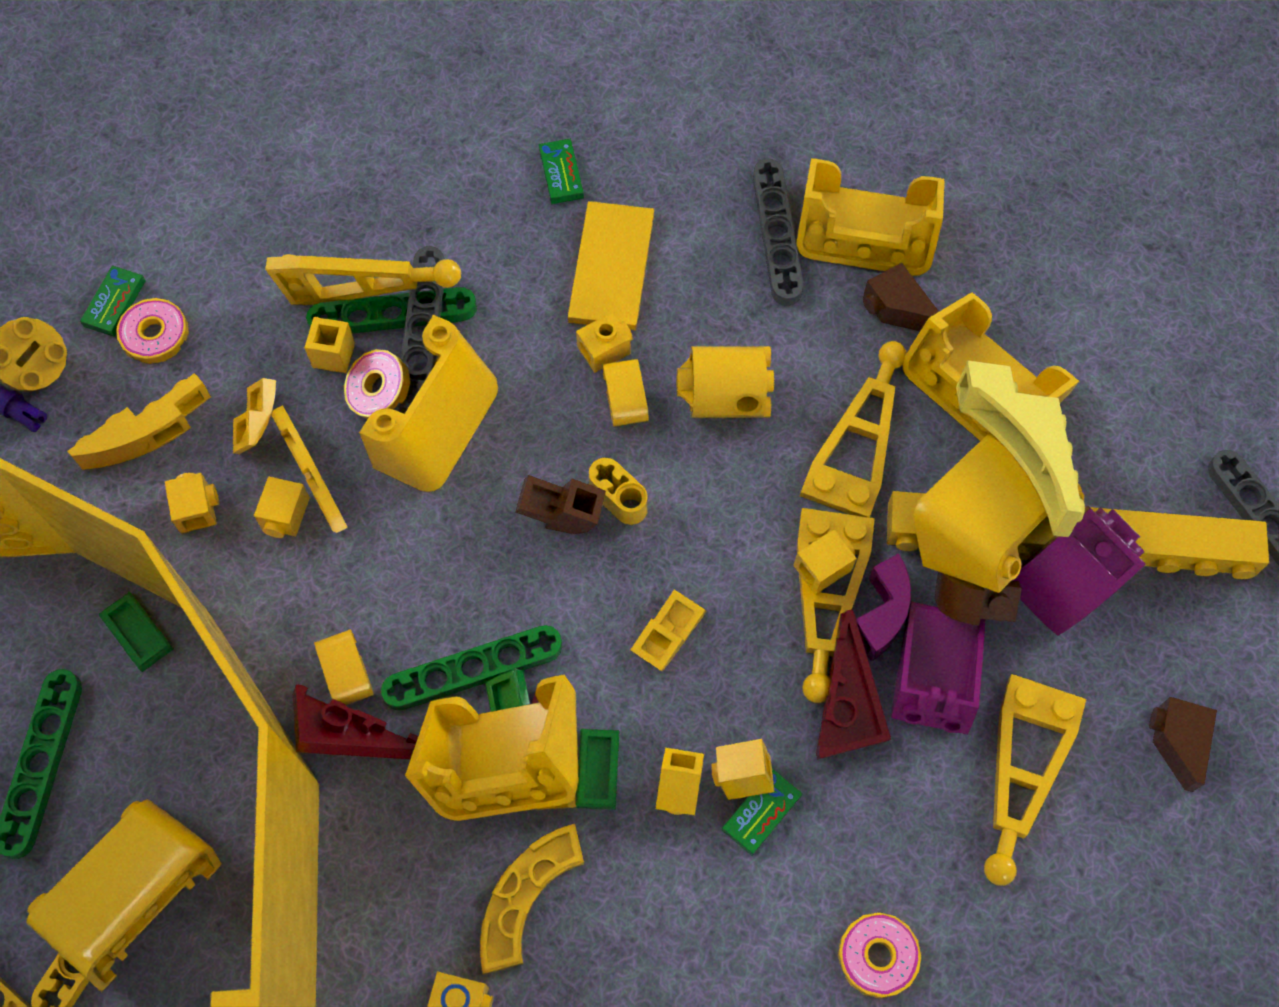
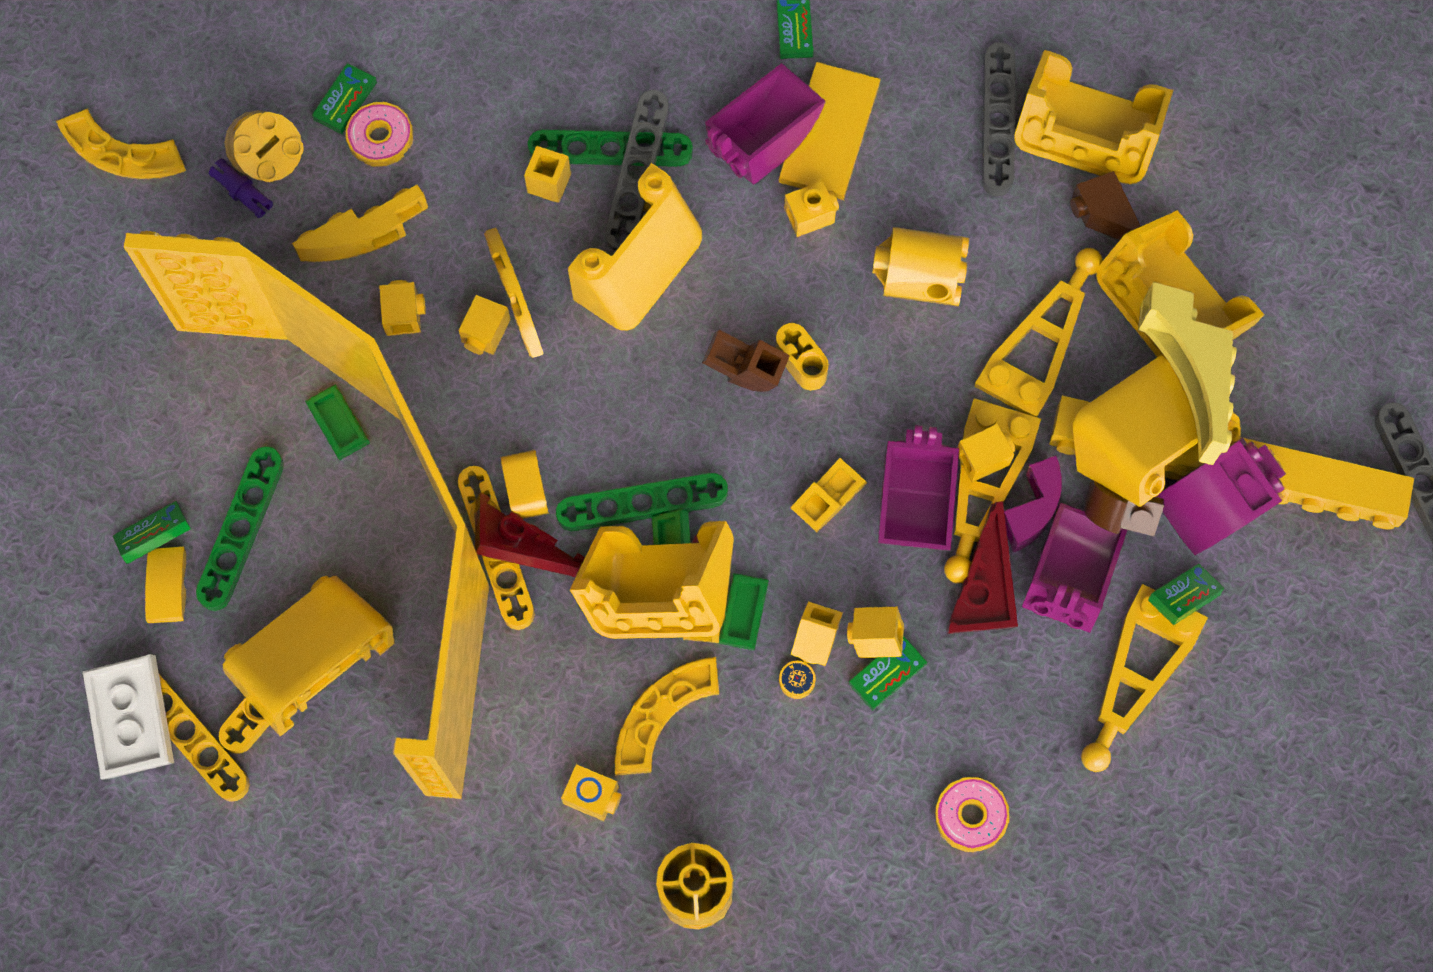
camera: 10 degrees right, 5 degrees up
(251, 425) = (464, 242): yellow slope -> none
(299, 285) = (525, 110): yellow plate -> none
(323, 762) = (495, 566): none -> yellow beam
(363, 375) = (573, 210): tile -> none
(544, 266) = (764, 124): none -> magenta piece
(625, 392) = (823, 261): yellow beam -> none
(666, 834) = (797, 679): none -> tile
(762, 612) = (918, 491): none -> magenta piece
(1059, 678) = (1186, 594): none -> green tile
(1184, 739) = (1290, 667): reddish brown slope -> none

